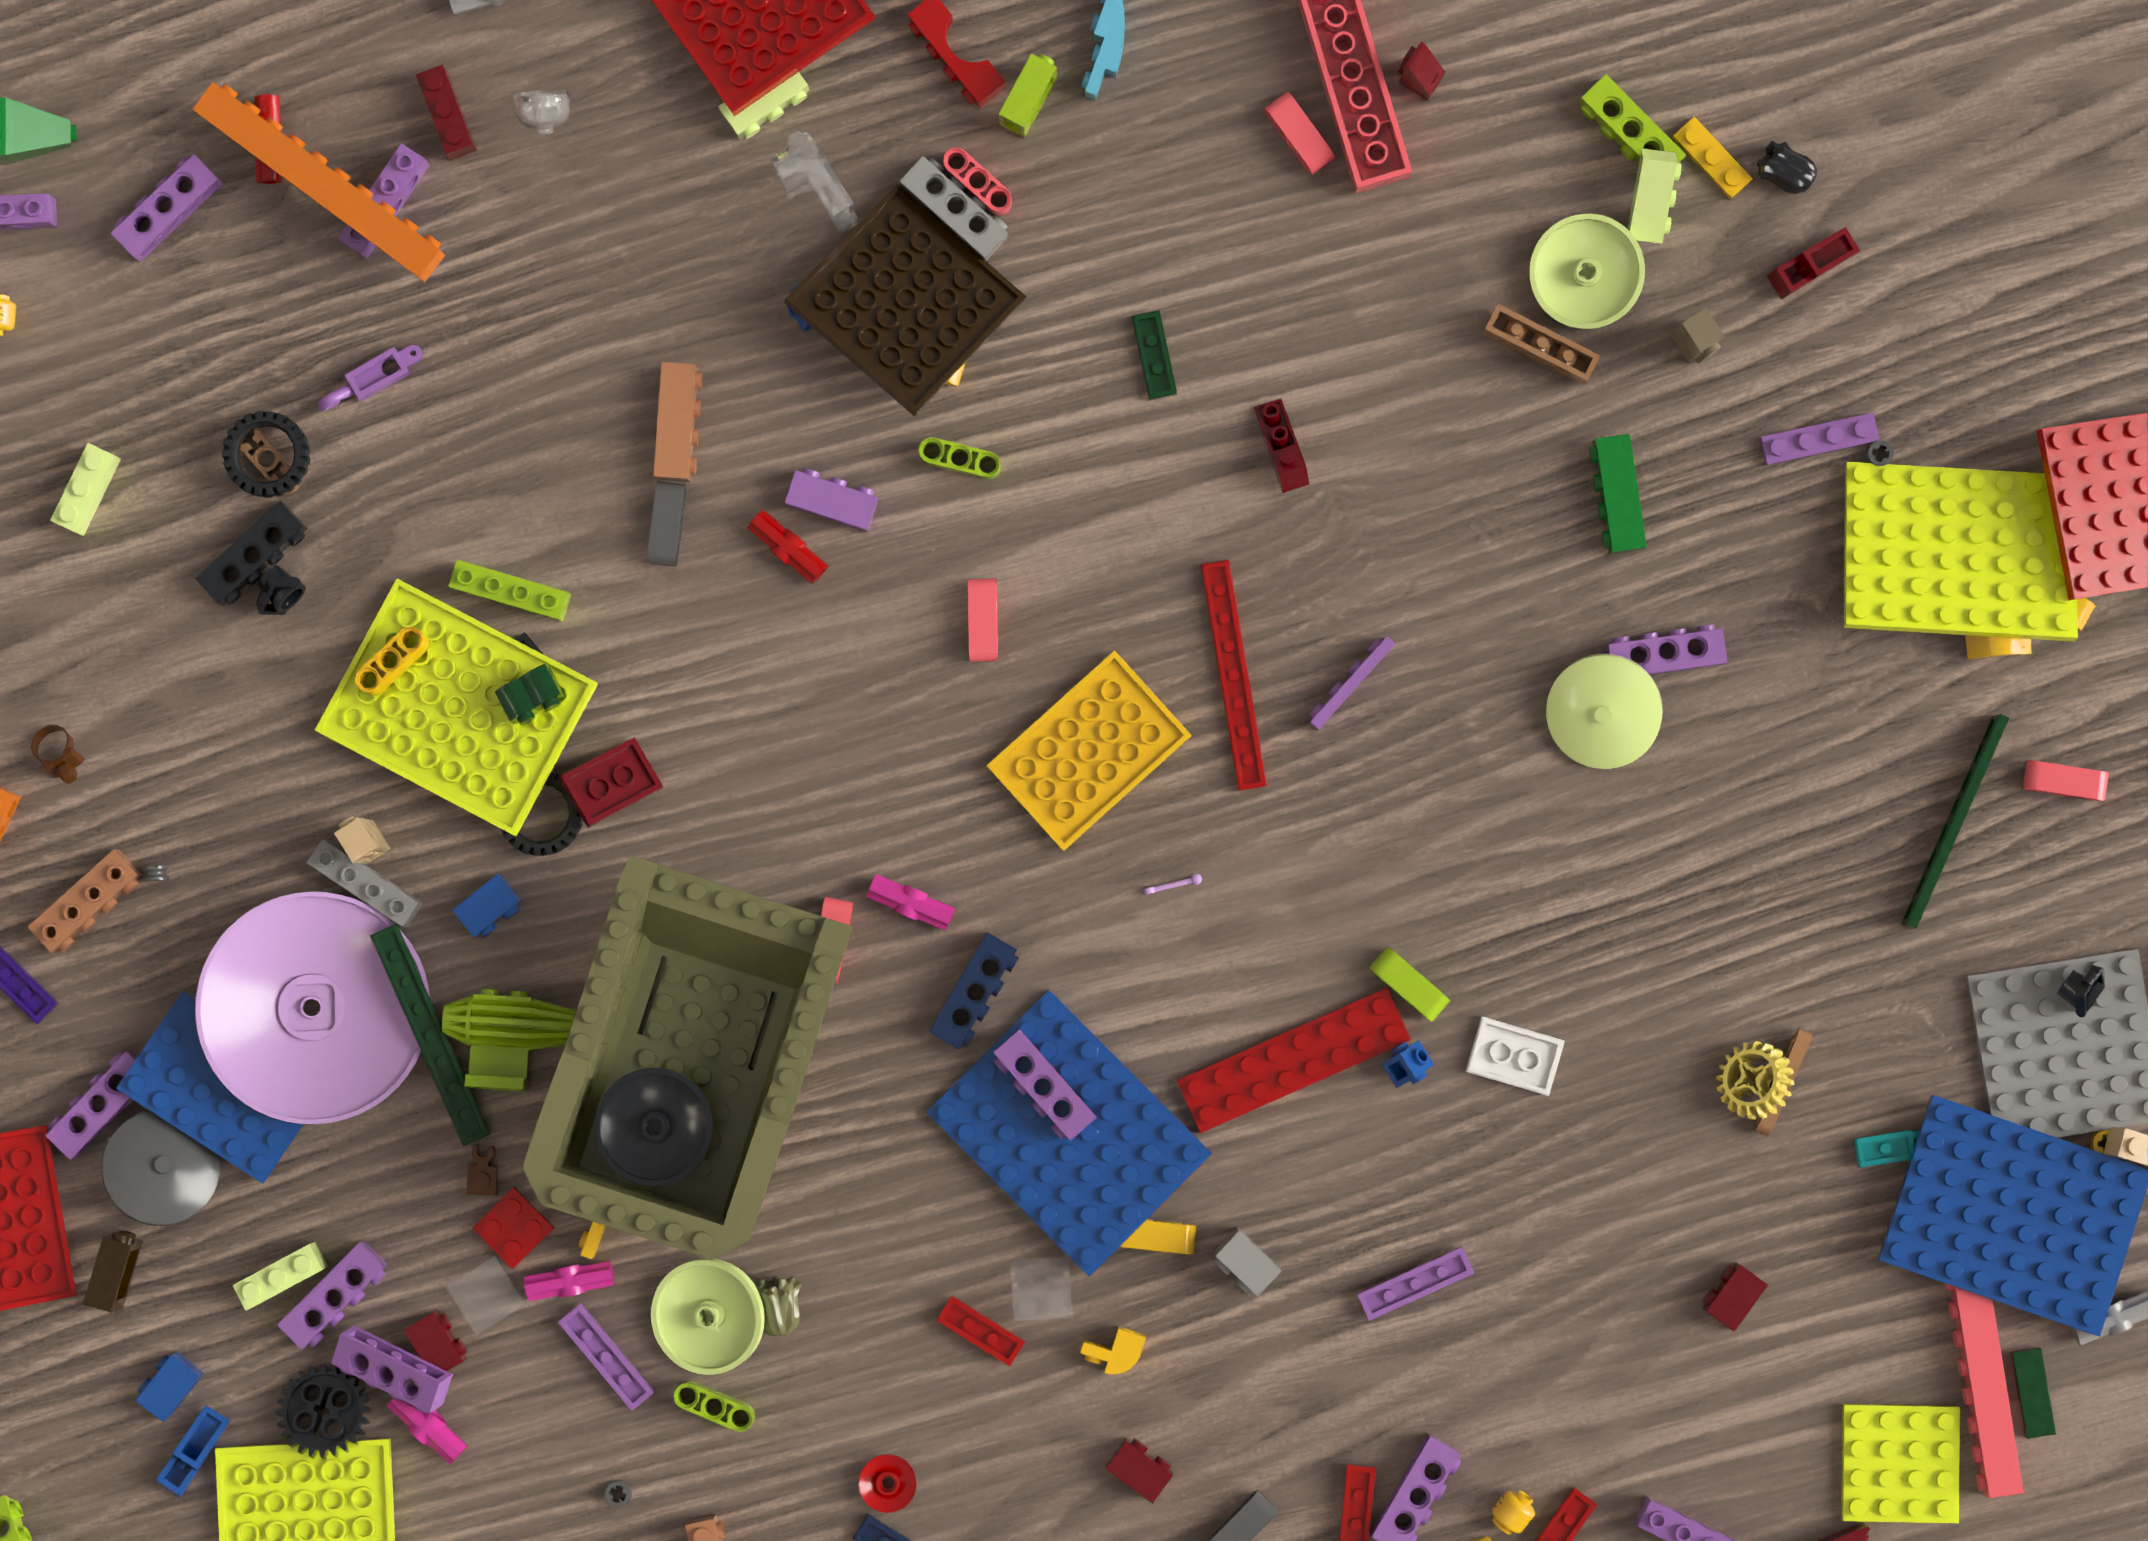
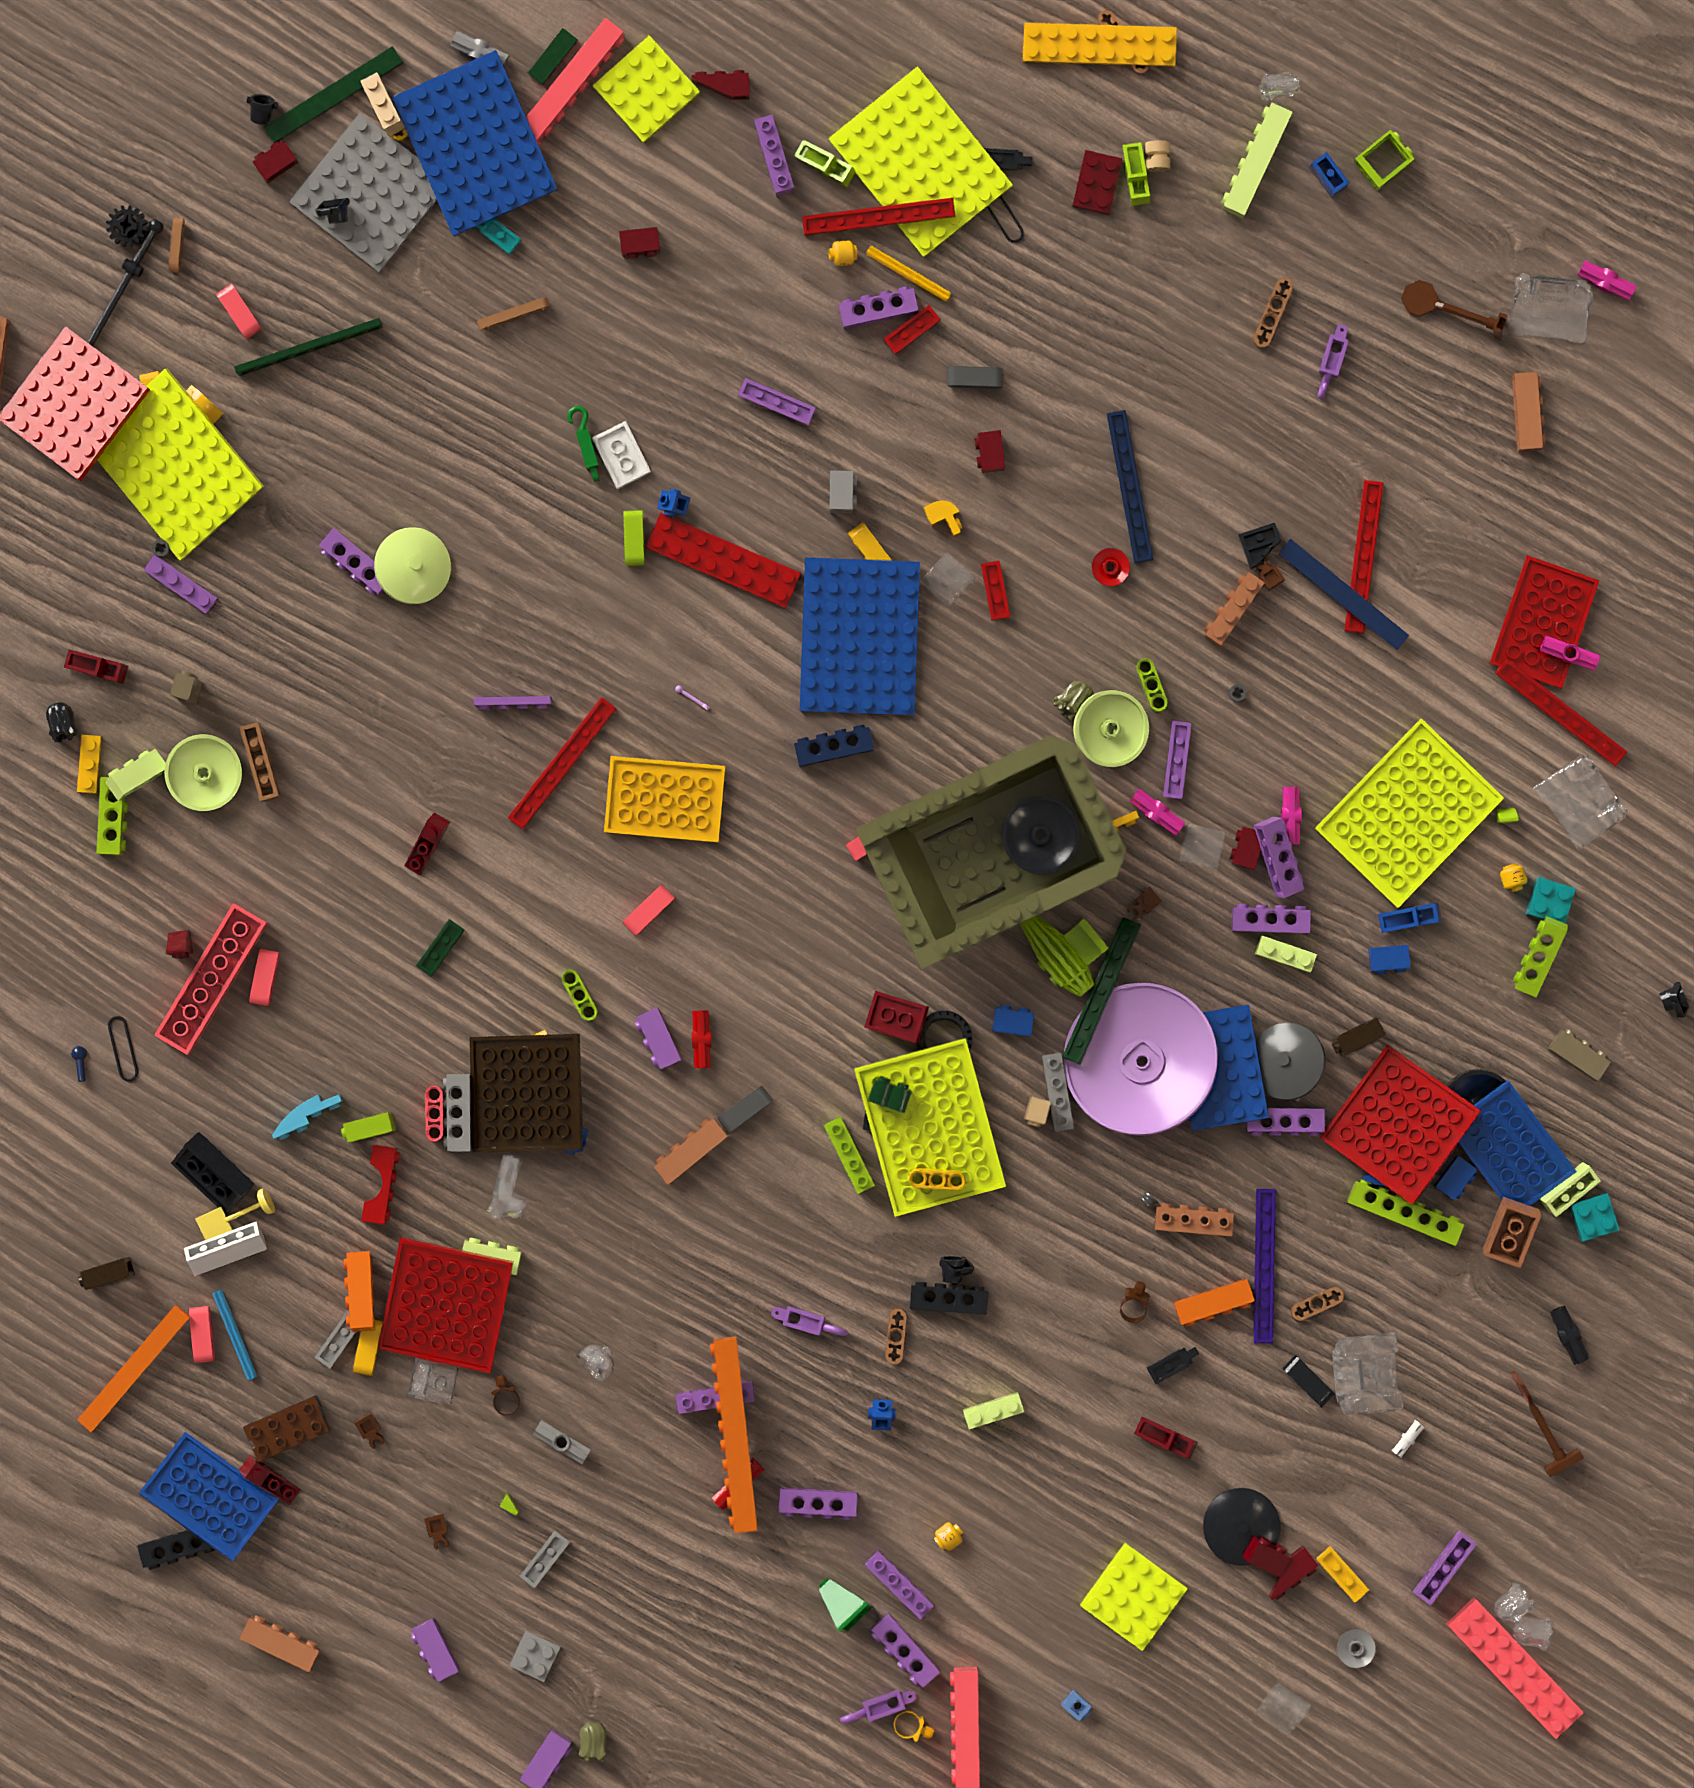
camera: 130 degrees left, 0 degrees up
(195, 364) = (881, 1414): none -> blue brick
(237, 435) = (887, 1359): black tyre -> none
(349, 1416) = (1340, 886): black gear -> none
(446, 112) = (642, 1408): dark red brick -> none
(513, 1227) = (1157, 863): red plate -> none
(910, 902) = (819, 817): dark pink piece -> none
(1079, 1115) = (839, 697): medium lavender brick -> none
(1566, 1029) = (585, 441): none -> green piece
(1618, 493) = (298, 657): green brick -> none
(1775, 1070) = (539, 333): light yellow gear -> none

